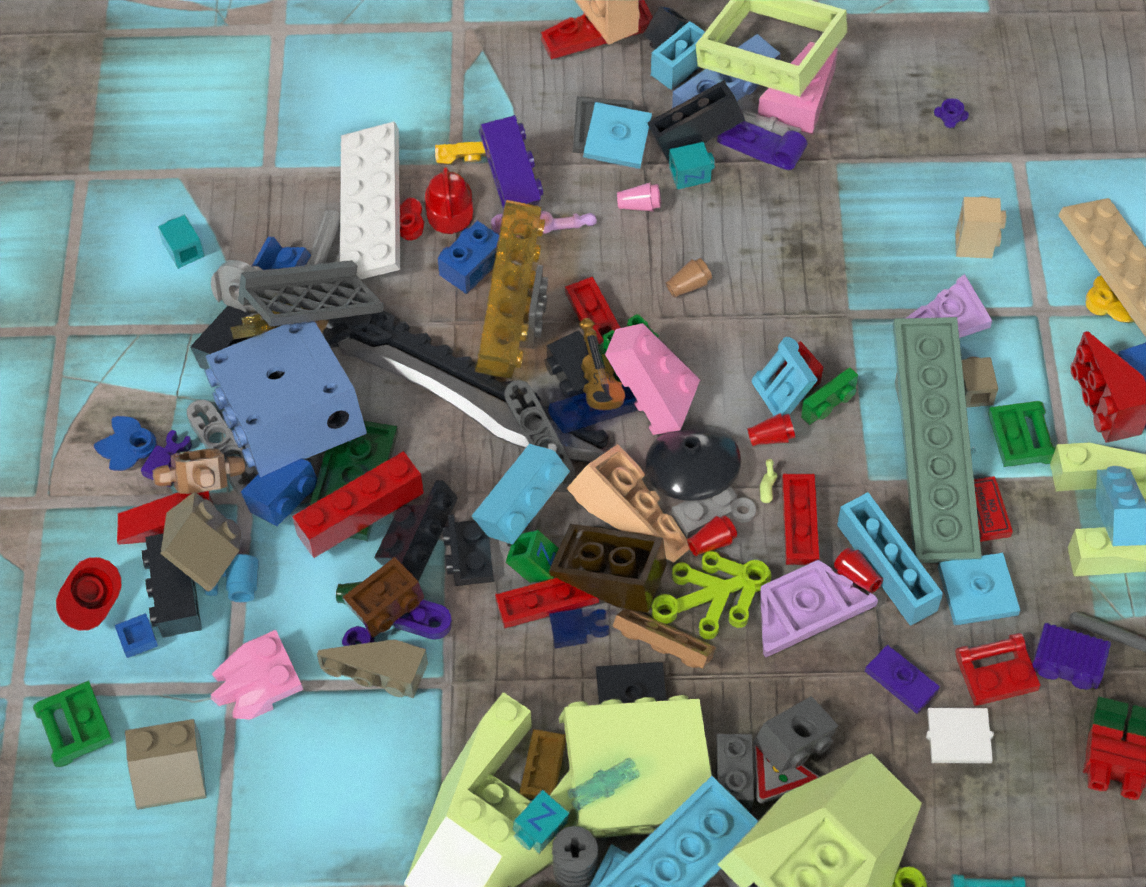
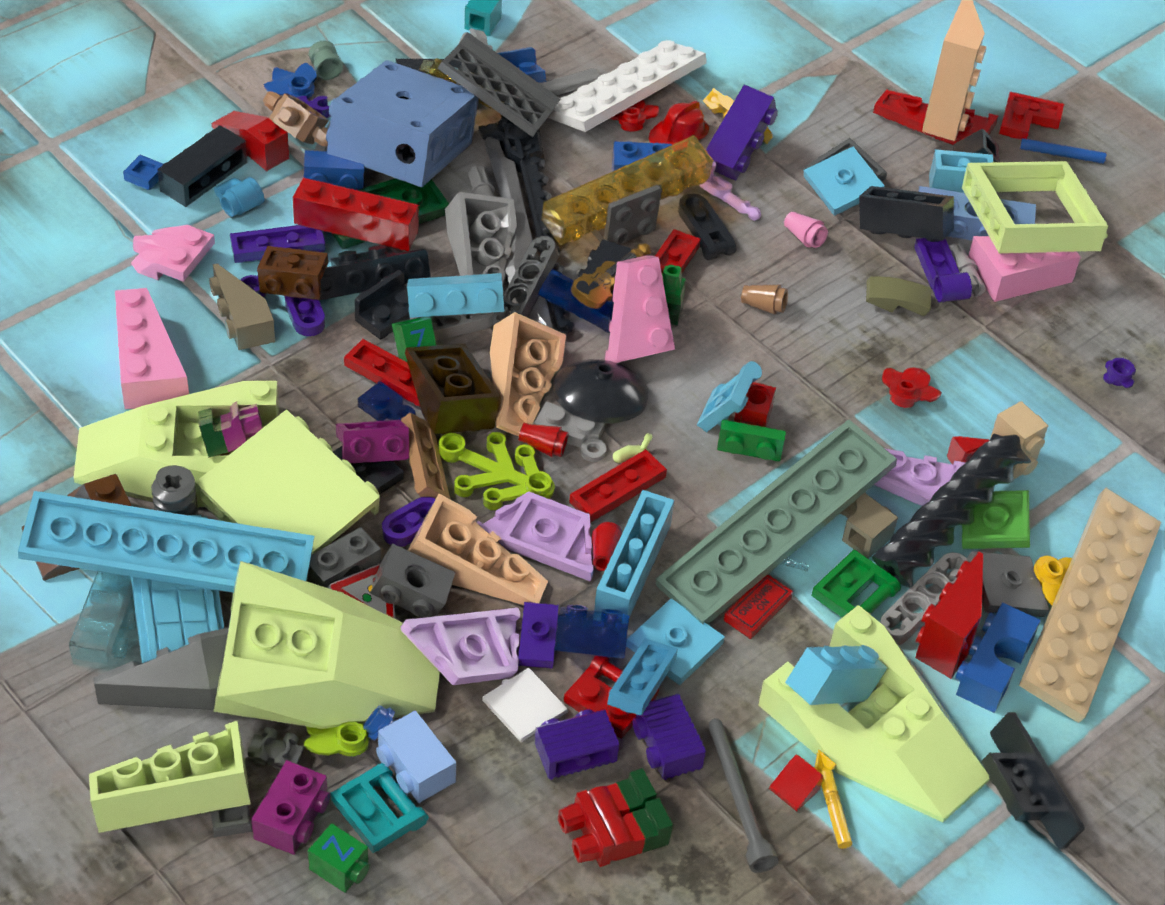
camera: 45 degrees right, 10 degrees down
(83, 718) = (52, 186): green plate -> none
(88, 593) = (148, 124): red piece -> none
(128, 400) = (325, 60): none -> sand green wheel
(165, 764) = (57, 242): dark tan slope -> none
(200, 540) = (238, 147): dark tan slope -> none
(319, 587) = (252, 244): none -> dark purple plate
(371, 775) = (146, 354): none -> bright pink wedge
(395, 390) = (480, 182): none -> light grey axle
(453, 431) = (480, 232): none -> light grey wedge
(531, 767) = (229, 430): none -> hips
(540, 822) = (179, 449): teal brick -> none
(578, 262) = (706, 225): none -> black plate
(603, 783) = (242, 469): clear light blue pin -> none
(620, 661) = (374, 441): none -> magenta bracket
(691, 165) = (869, 240): teal brick -> none
(721, 693) = (406, 521): none -> dark purple plate
(759, 188) = (891, 292): none -> olive slope
(772, 431) = (682, 424): red cone -> none
(784, 675) = (478, 559): none -> light nougat wedge
(855, 252) = (909, 386): none -> red plate
(889, 735) = (468, 644): none -> lavender wing
(917, 852) = (377, 720): none -> blue plate
(941, 640) = (592, 631): none -> clear blue brick
(953, 266) = (963, 448): none -> red slope
(969, 848) = (416, 757): none -> light blue brick
(1008, 318) = (949, 507): none -> black piece
(1016, 636) = (642, 677): none -> dark azure plate
(1028, 296) = (1001, 523): none -> bright green plate
(1031, 724) = (576, 743): none -> dark purple brick
(1067, 395) = (920, 595): none -> light grey beam
(1105, 328) = (1011, 581): none -> dark grey plate

